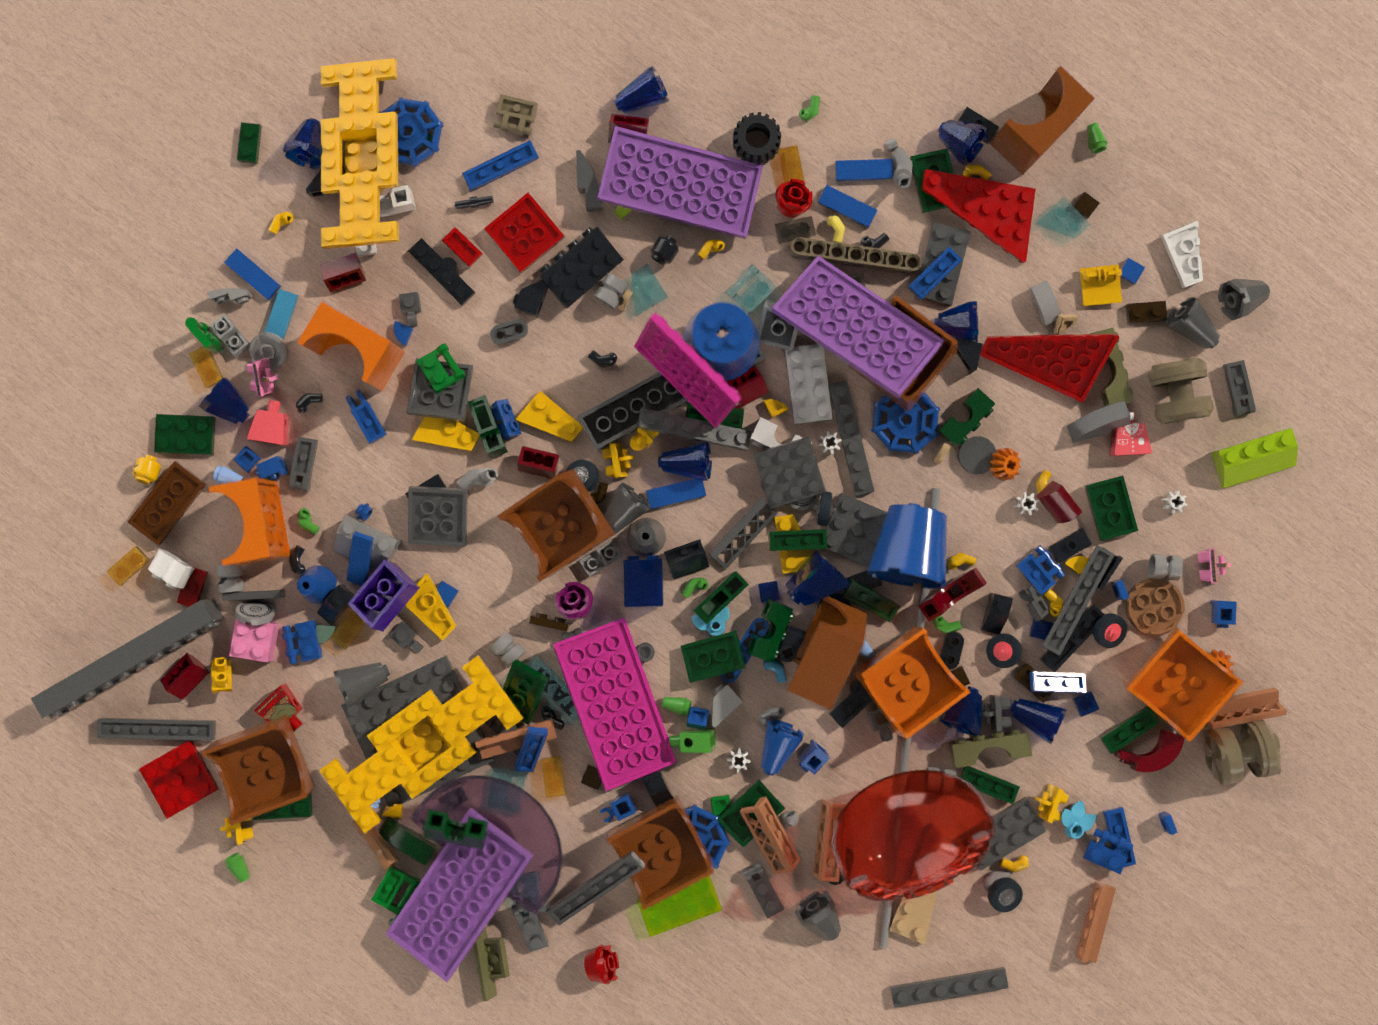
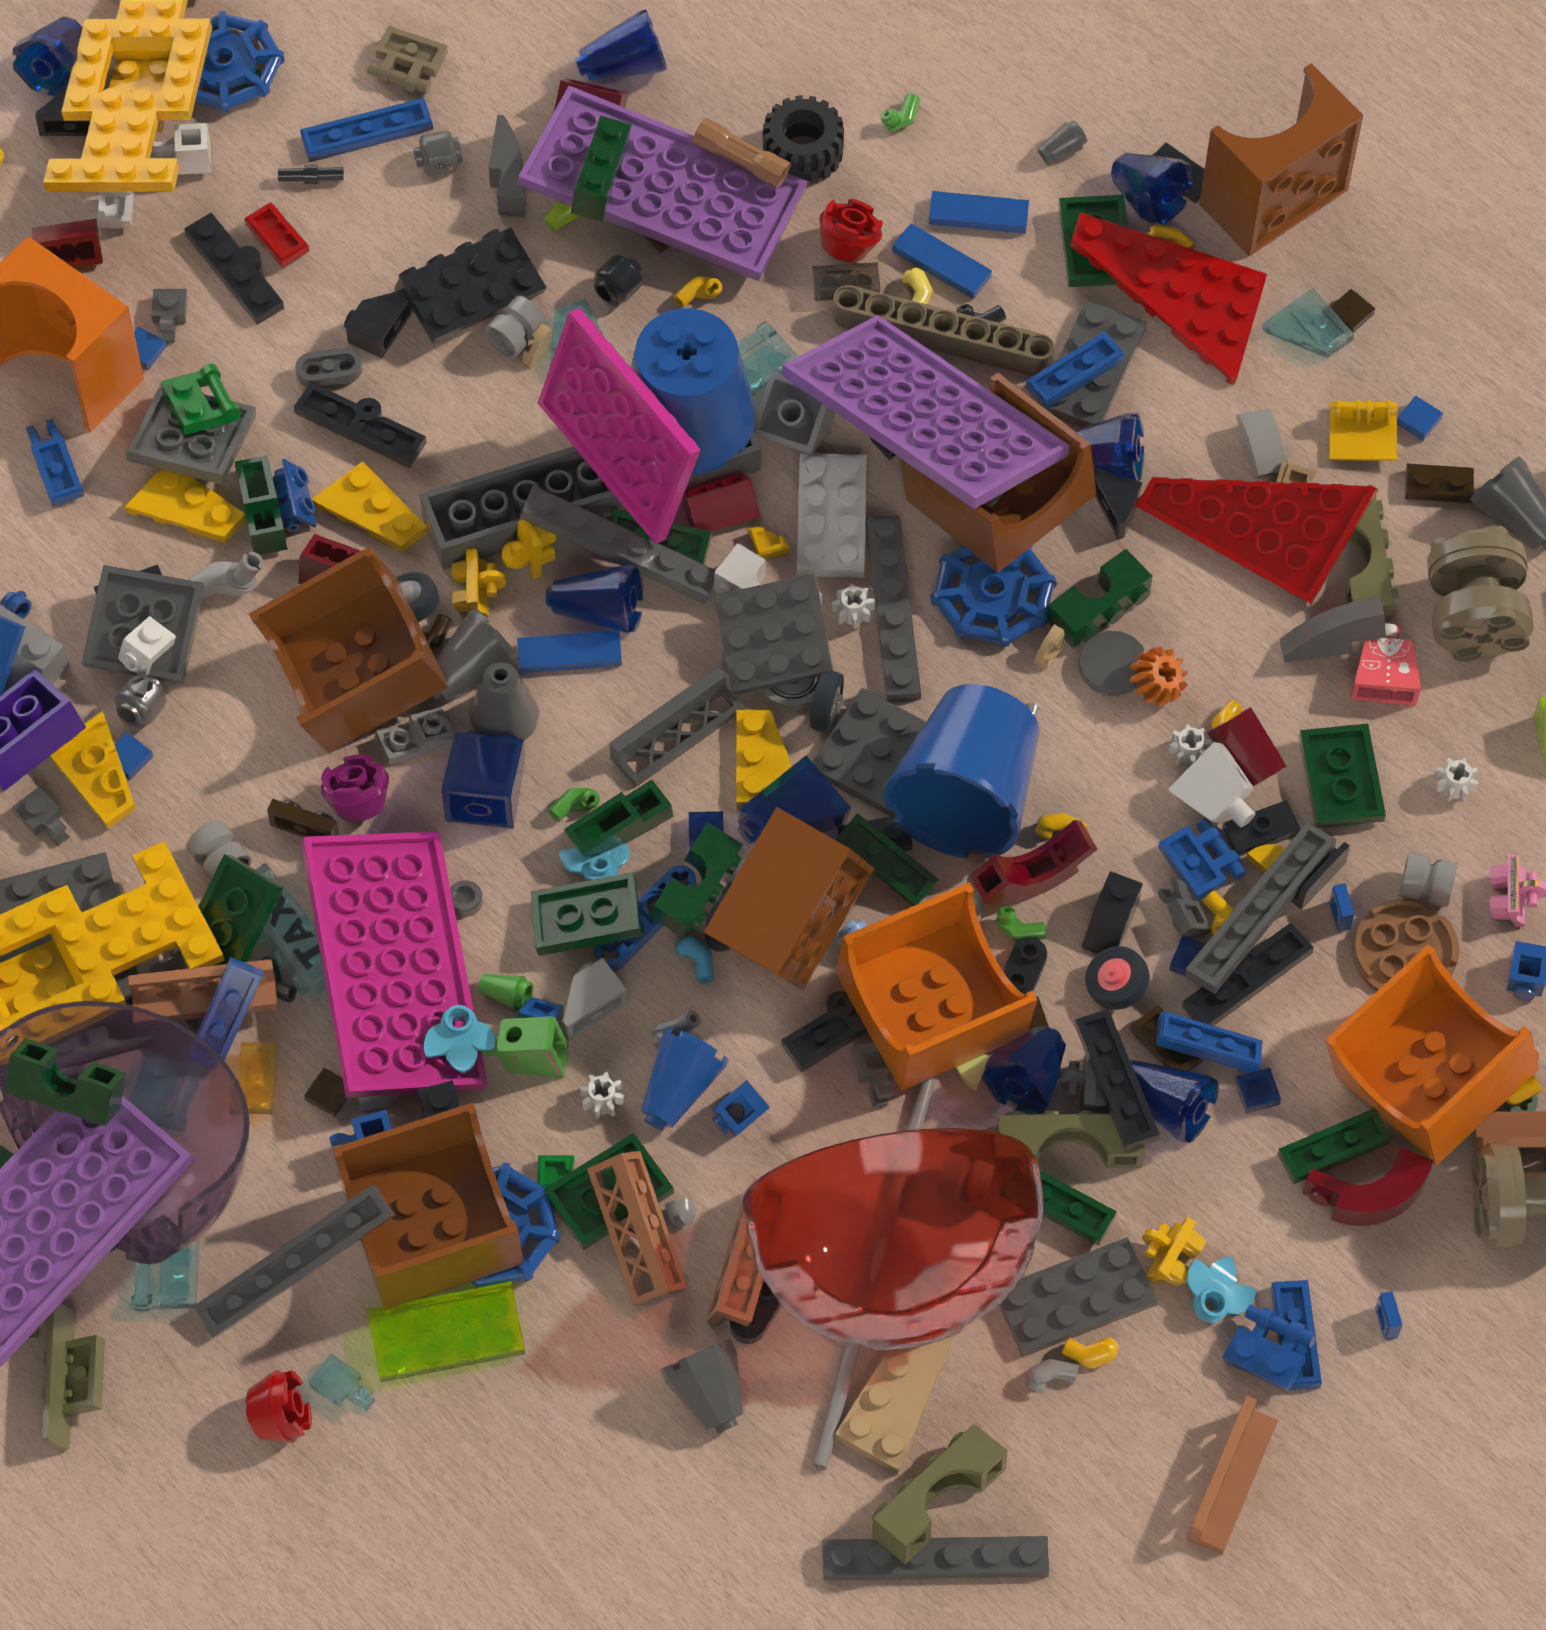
camera: 10 degrees right, 25 degrees down
(442, 533) = (145, 646): none -> white bracket
(445, 562) = (140, 701): none -> flat silver head
(524, 232) = (386, 227): red plate -> none
(531, 928) = (159, 1324): dark grey plate -> none
(534, 366) = (360, 423): none -> black hinge
(545, 178) = (438, 153): none -> dark grey head
(603, 361) = (482, 432): black arm -> none
(628, 938) = (340, 1381): none -> clear light blue plate
(645, 187) = (600, 168): none -> dark green arch
(660, 746) = (461, 1043): none -> medium azure plate
(686, 559) = (569, 758): black panel -> none
(736, 162) = (761, 163): none -> medium nougat axle
(763, 890) = (608, 1332): dark grey plate -> none
(791, 163) = (855, 181): clear yellow plate -> none
(797, 540) = (769, 742): dark green plate -> none
(903, 170) = (1046, 210): light grey arm -> none
(908, 115) = (1063, 142): none -> dark grey cone
(961, 938) = (968, 1463): none -> olive arch
(1005, 894) = (1064, 1397): black wheel -> none
(1014, 719) = (1117, 1079): none -> black plate
(1044, 530) = (1216, 787): none -> white torso
(1096, 139) = (1380, 217): bright green cone -> none
(1110, 630) = (1316, 970): black wheel -> none
(1184, 254) = (1514, 401): white wing -> none

